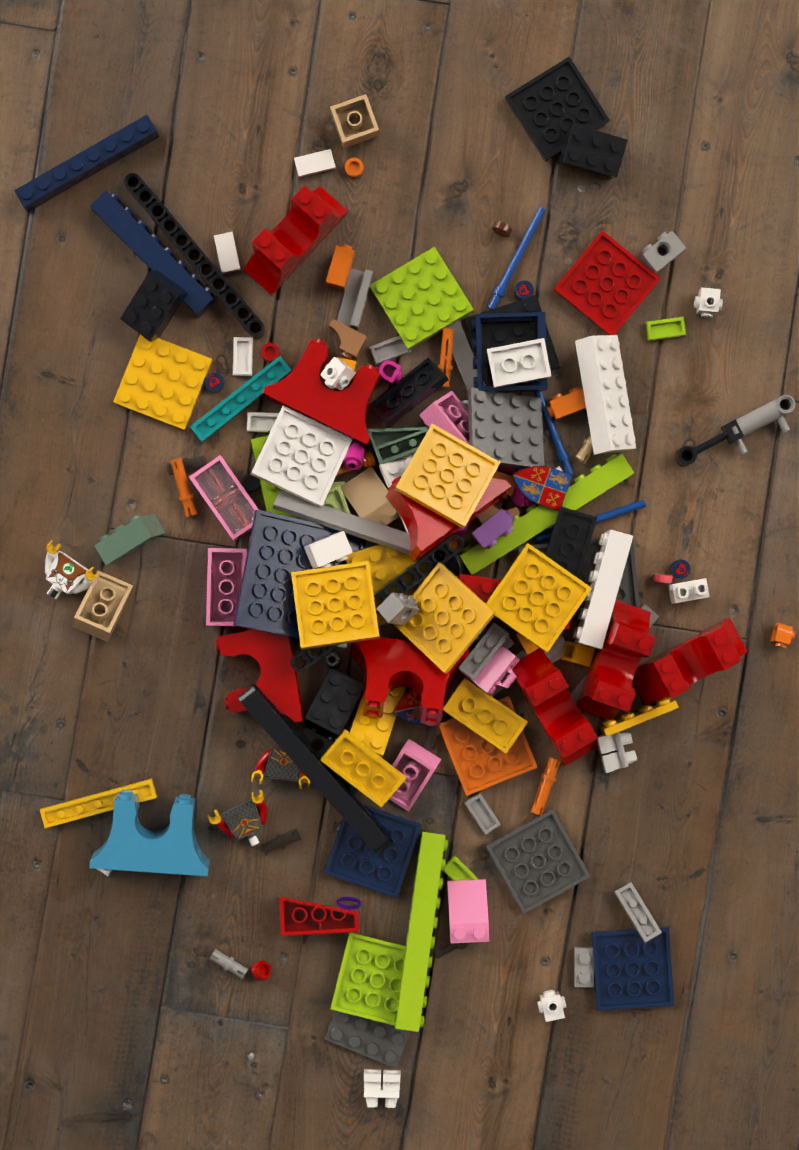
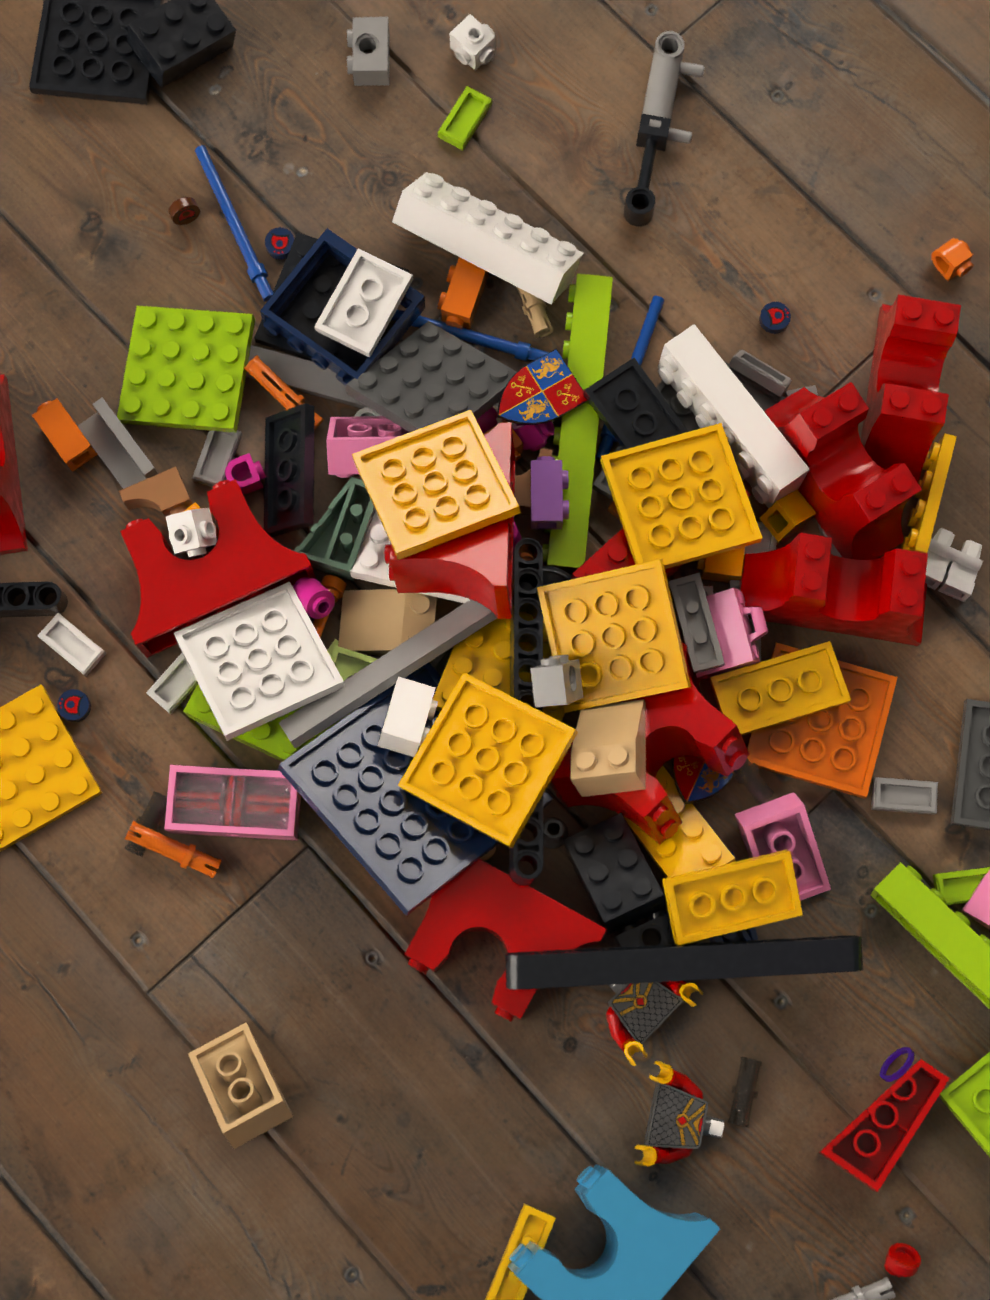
camera: 50 degrees left, 10 degrees down
(66, 573) = (156, 1098): torso -> none
(129, 538) = (179, 976): sand green wedge -> none
(223, 584) = (346, 894): bright pink brick -> none
(240, 399) = (122, 691): teal plate -> none
(251, 482) = (239, 756): black tile -> none
(270, 352) = (96, 606): red tile -> none
(357, 863) = (853, 1007): dark blue plate -> none
(387, 657) = (610, 749): none -> tan slope
(548, 778) = (929, 687): orange pin -> none
(607, 283) = (353, 141): red plate -> none
(643, 584) = (760, 372): none -> light grey tile
(662, 578) = (770, 344): coral tile -> none
(688, 591) = (811, 324): white hips -> none

